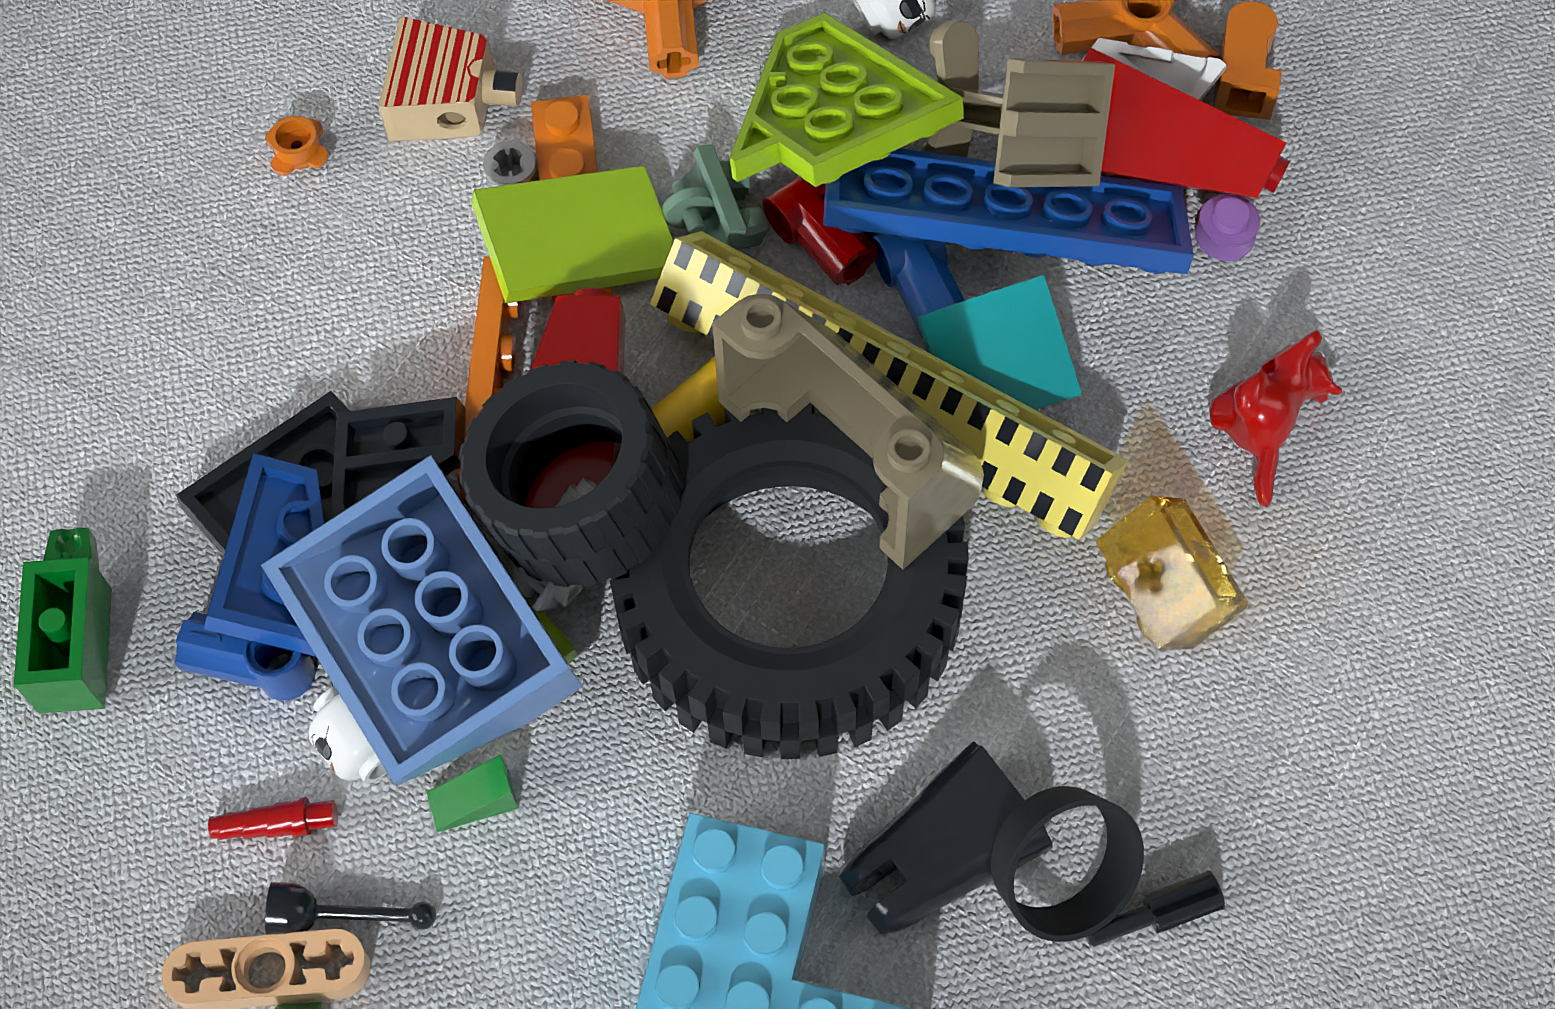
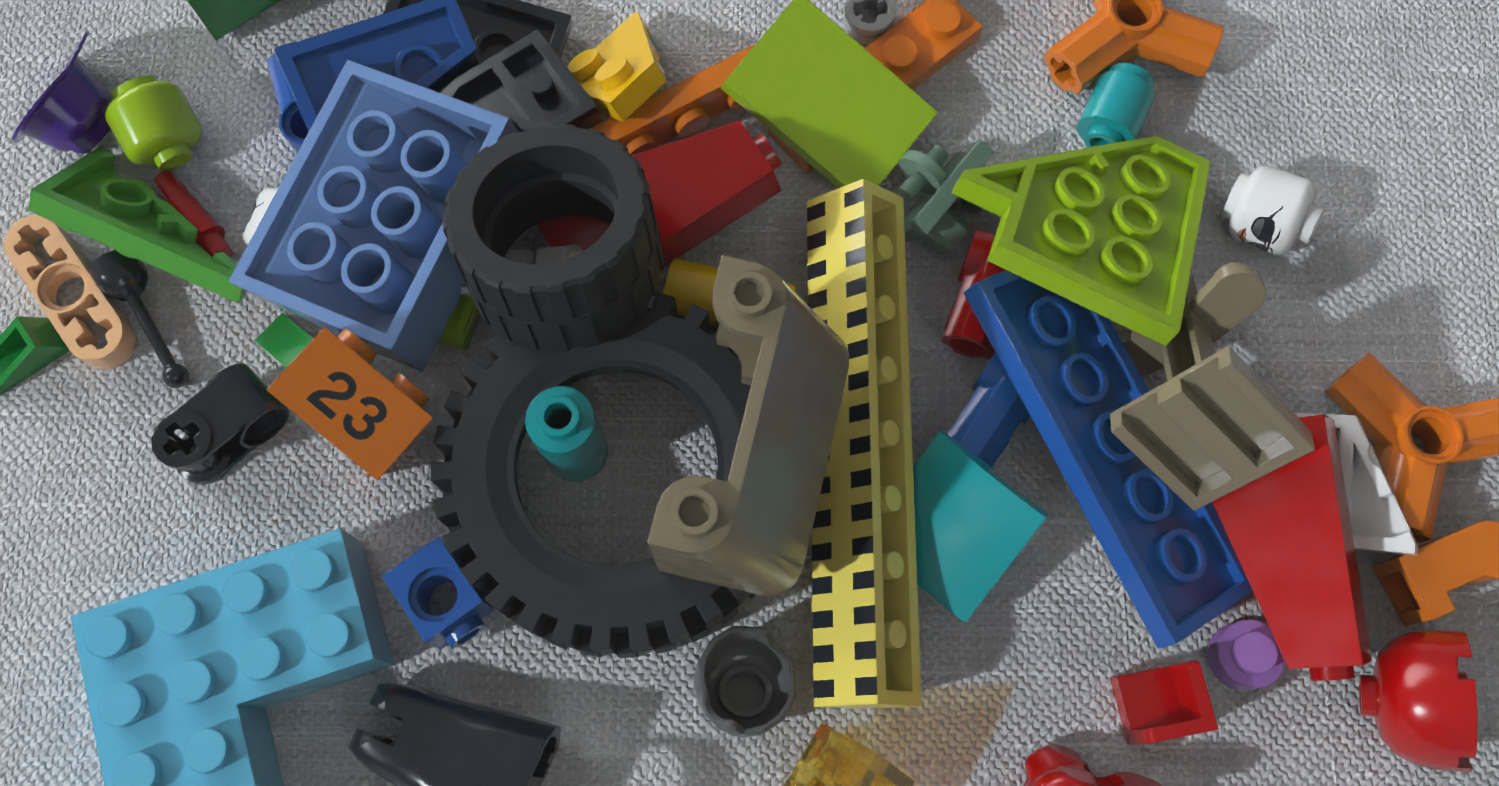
camera: 55 degrees right, 10 degrees up
(69, 861) = (69, 110): none -> dark purple piece
(157, 798) = (153, 123): none -> lime head
(259, 857) = (130, 218): none -> bright green wing
(423, 367) = (620, 69): none -> yellow wing
(506, 882) = (223, 421): none -> black piece
(584, 740) = (351, 401): none -> orange brick
(732, 583) = (567, 433): none -> teal brick
(733, 45) = (1117, 105): none -> teal brick
(778, 758) = (416, 580): none -> blue brick
(1025, 582) = (745, 681): none -> dark grey hair
(1229, 300) = (1164, 703): none -> red panel
(1333, 130) = (1422, 700): none -> red cylinder

